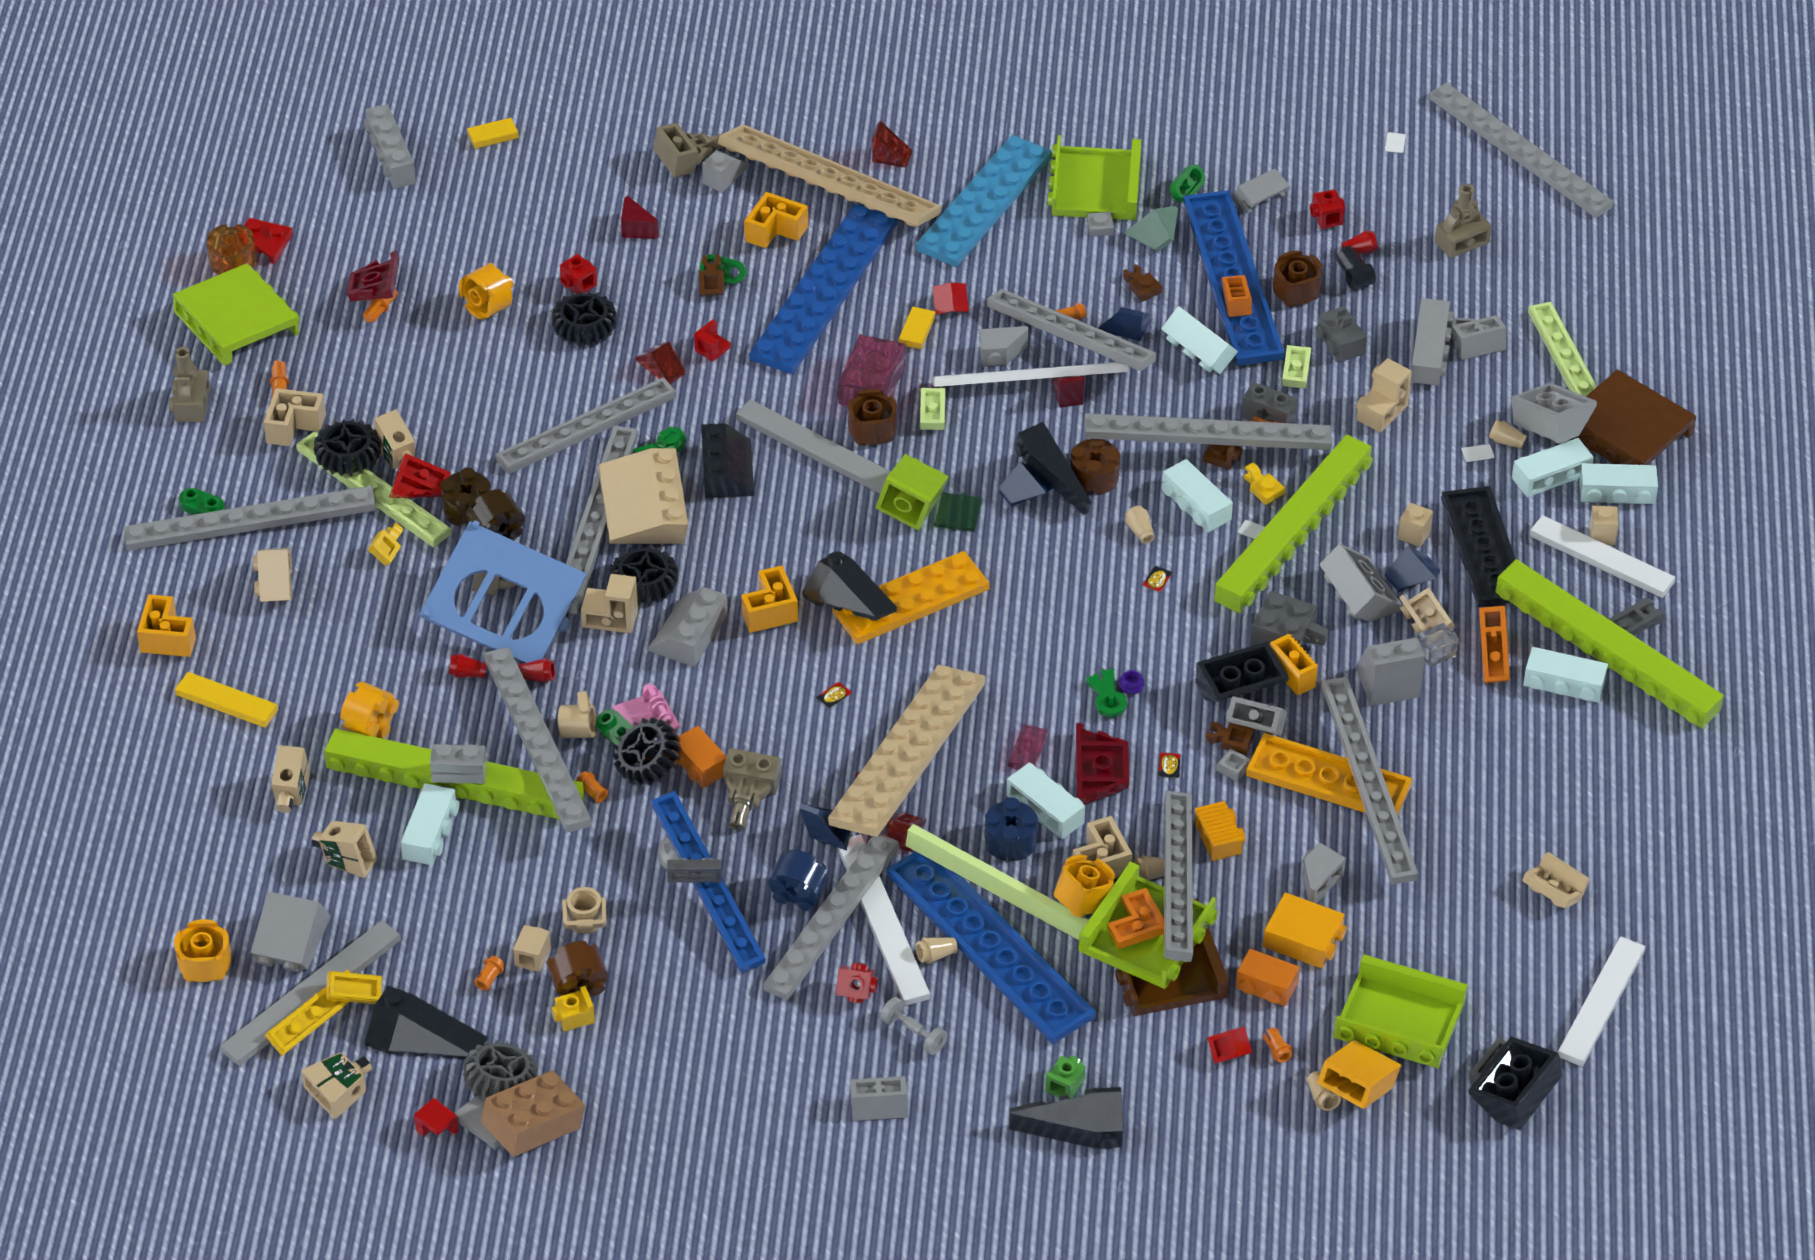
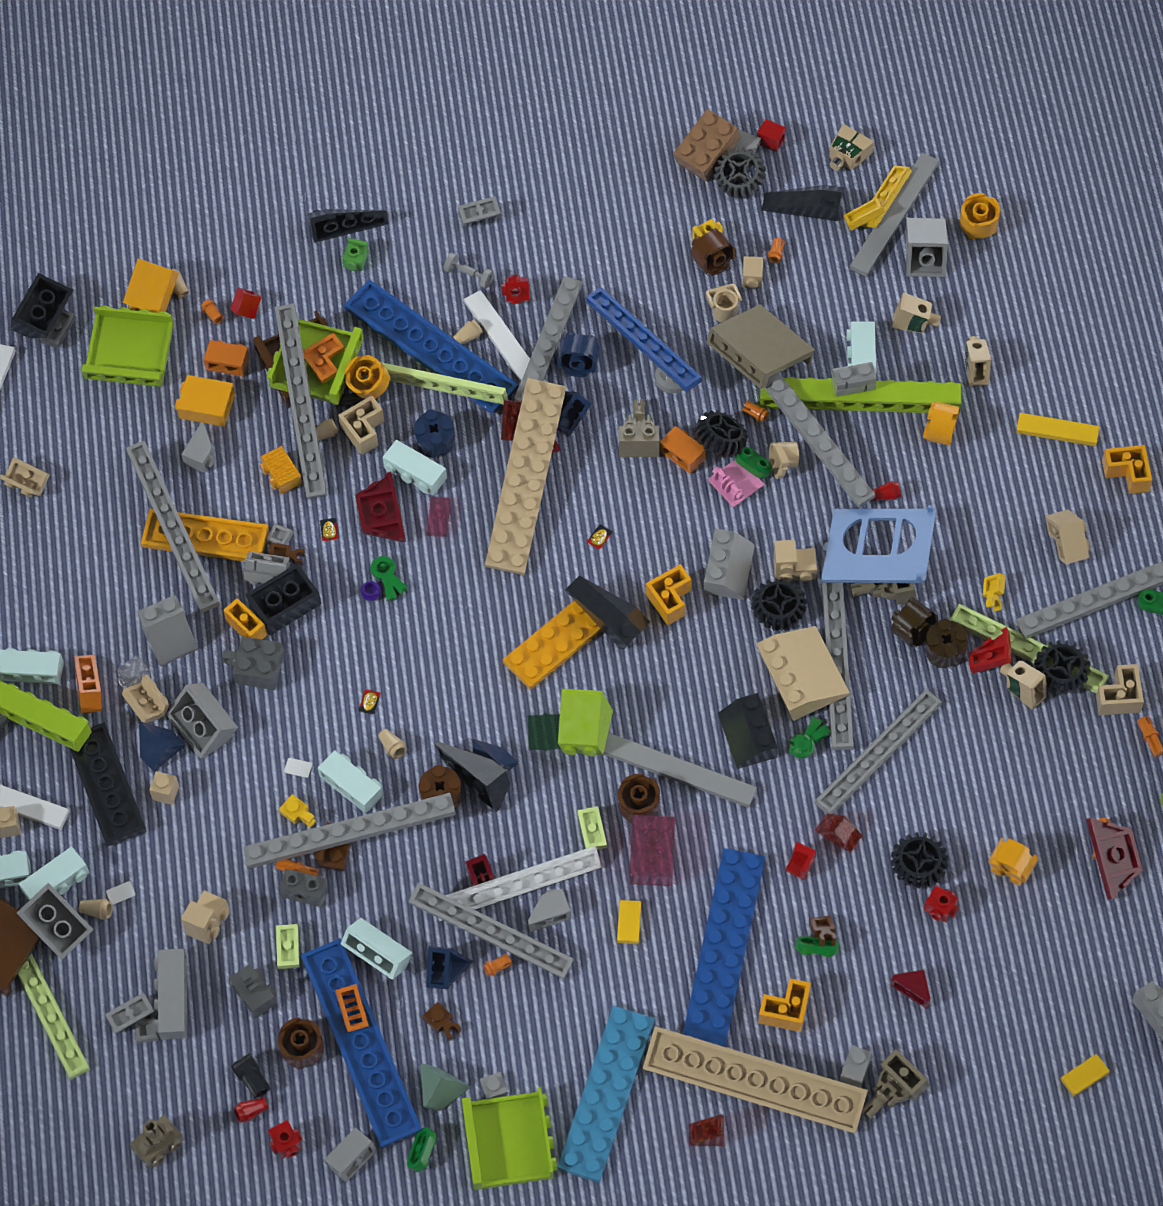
camera: 170 degrees right, 15 degrees up
(538, 670) = (831, 500): red cone -> none
(557, 832) = (758, 344): none -> dark tan panel
(693, 871) = (652, 327): flat silver plate -> none
(950, 298) = (606, 956): red panel -> none
(1293, 524) = (264, 772): lime brick -> none

